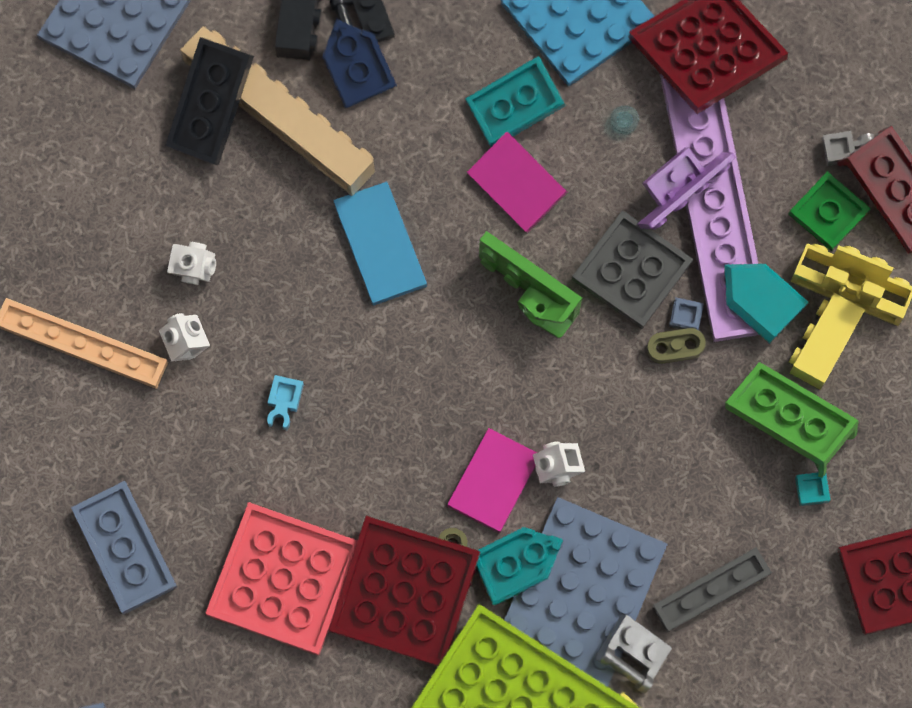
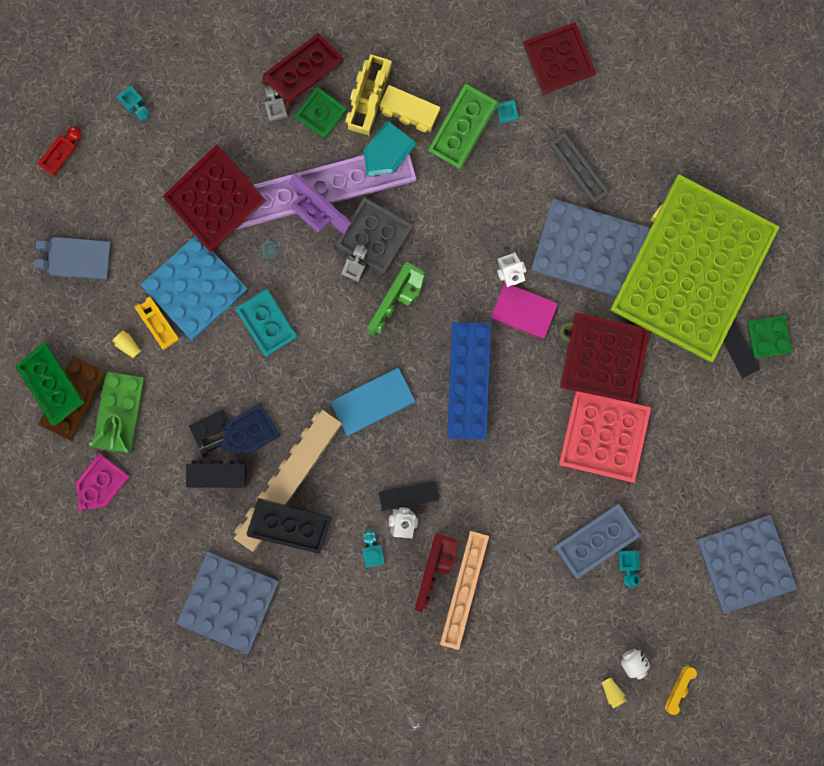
camera: 95 degrees left, 10 degrees up
(81, 592) = (630, 562): none -> teal plate
(131, 304) = (437, 561): none -> dark red plate
(153, 219) = (373, 554): none -> teal plate
(184, 337) = (454, 521): white brick -> none
(232, 280) = (408, 495): none -> black tile
(284, 397) = (485, 450): medium azure plate -> none
(392, 381) = (469, 381): none -> blue brick
(517, 182) = (322, 315): dark pink tile -> none
(517, 562) = (578, 289): teal tile -> none
(587, 233) = (354, 267): none -> light grey plate
(637, 644) = (620, 209): flat silver plate -> none
(675, 345) = (422, 204): olive plate -> none
(686, 314) = (400, 199): sand blue tile -> none

